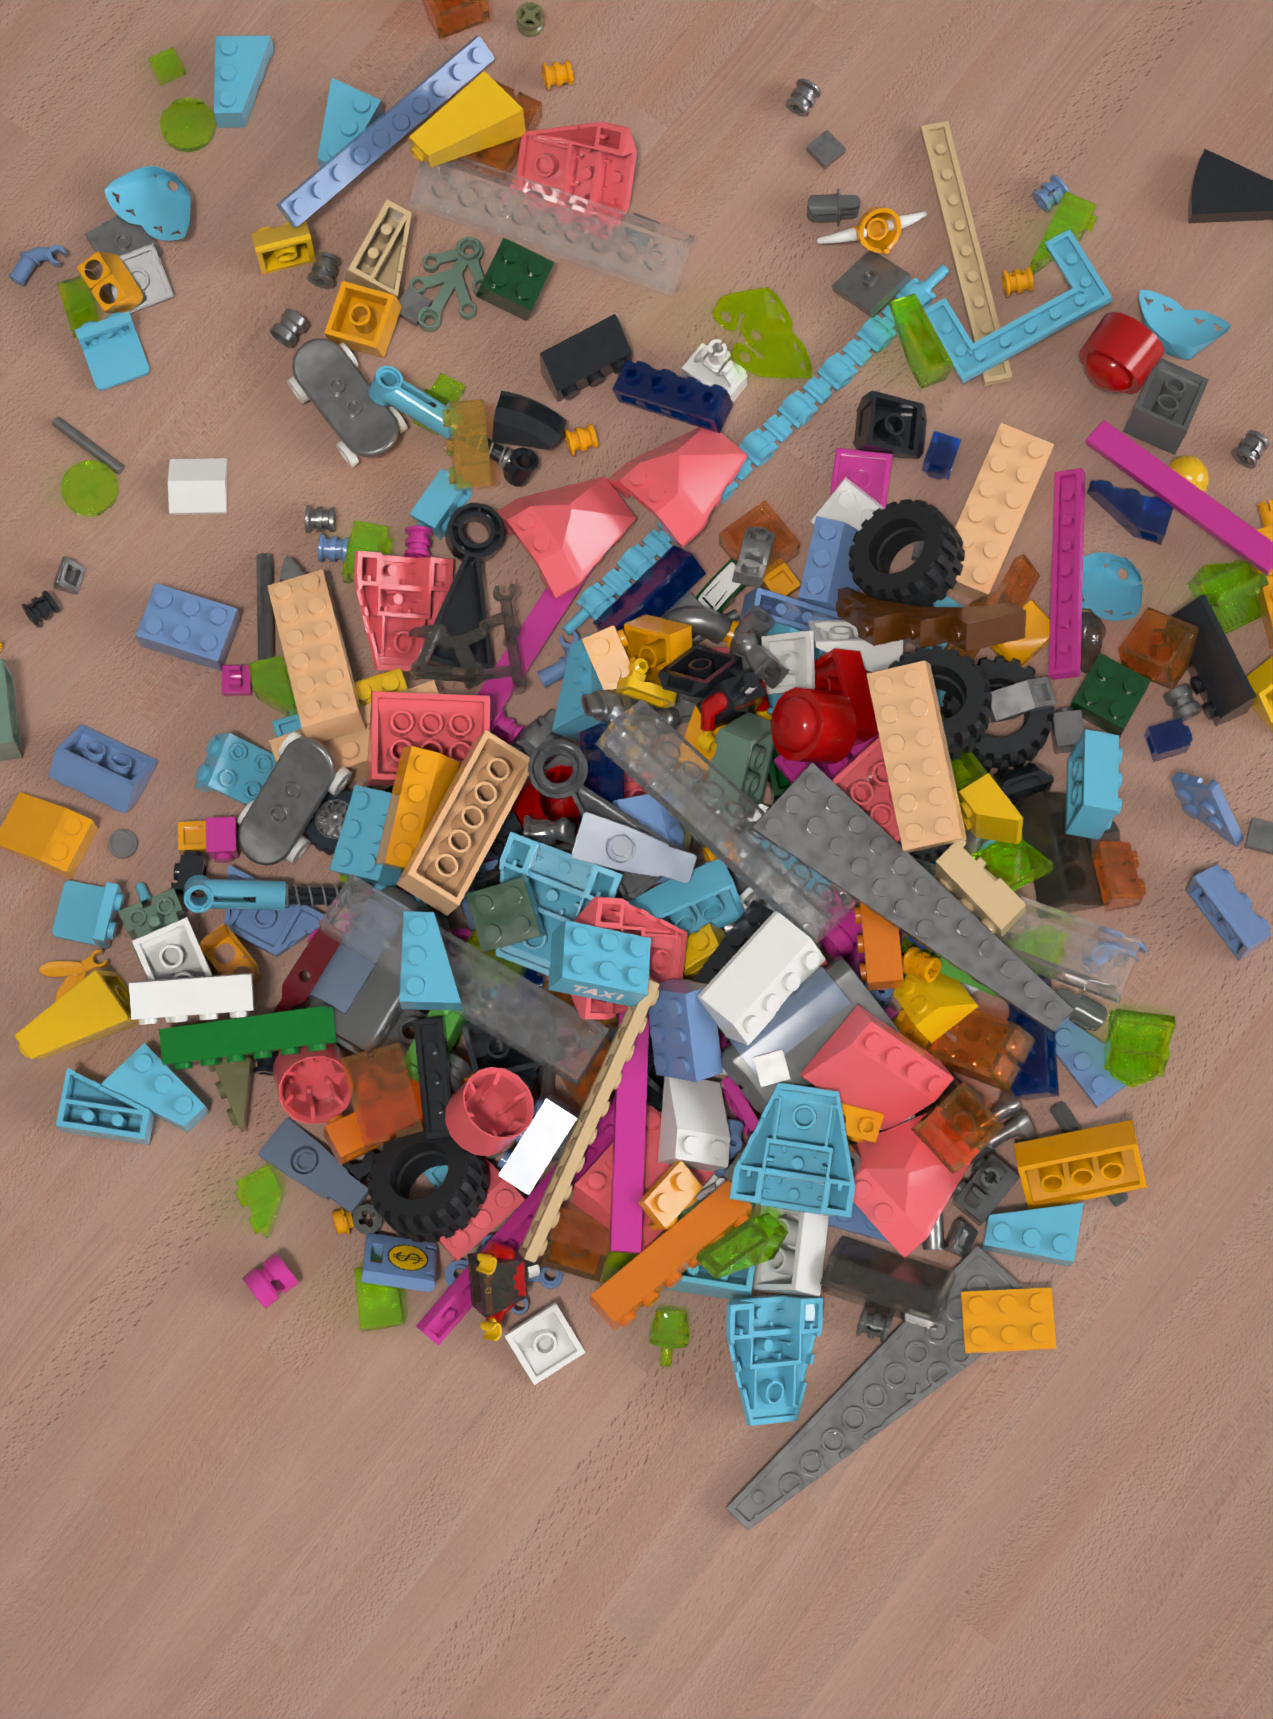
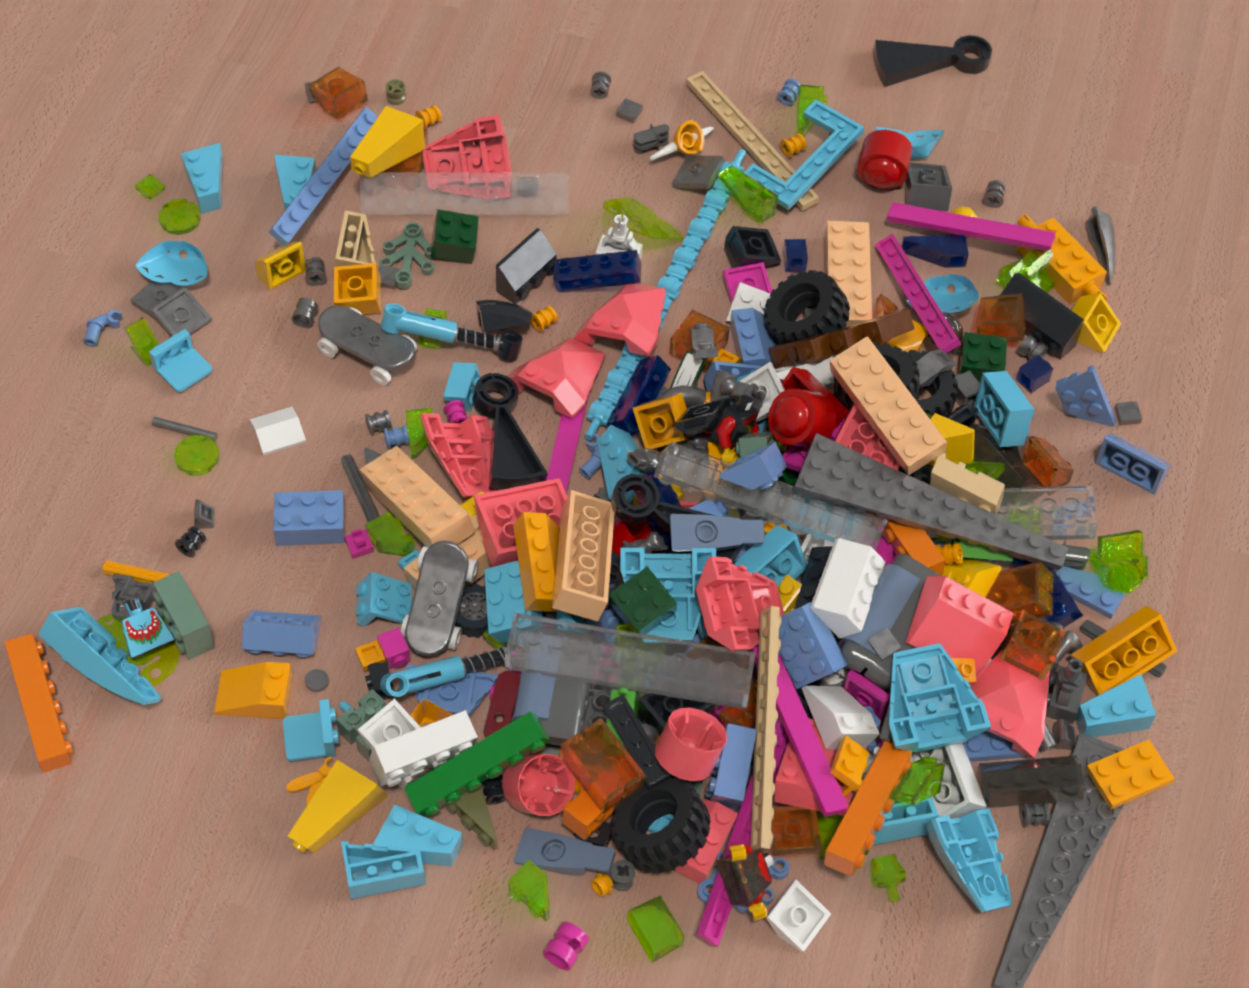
camera: 25 degrees left, 20 degrees down
(128, 291) = (180, 321): light orange piece -> none
(403, 1262) = (662, 893): medium blue container -> none
(425, 968) = (603, 651): medium azure wedge -> none
(467, 445) = (470, 334): clear yellow brick -> none
(470, 671) = (530, 473): clear smoke piece -> none
(599, 963) = (731, 603): medium azure brick -> none
(609, 655) = (633, 430): light orange bracket -> none
(636, 687) = (661, 439): yellow piece -> none
(716, 784) = (756, 468): none -> medium blue slope

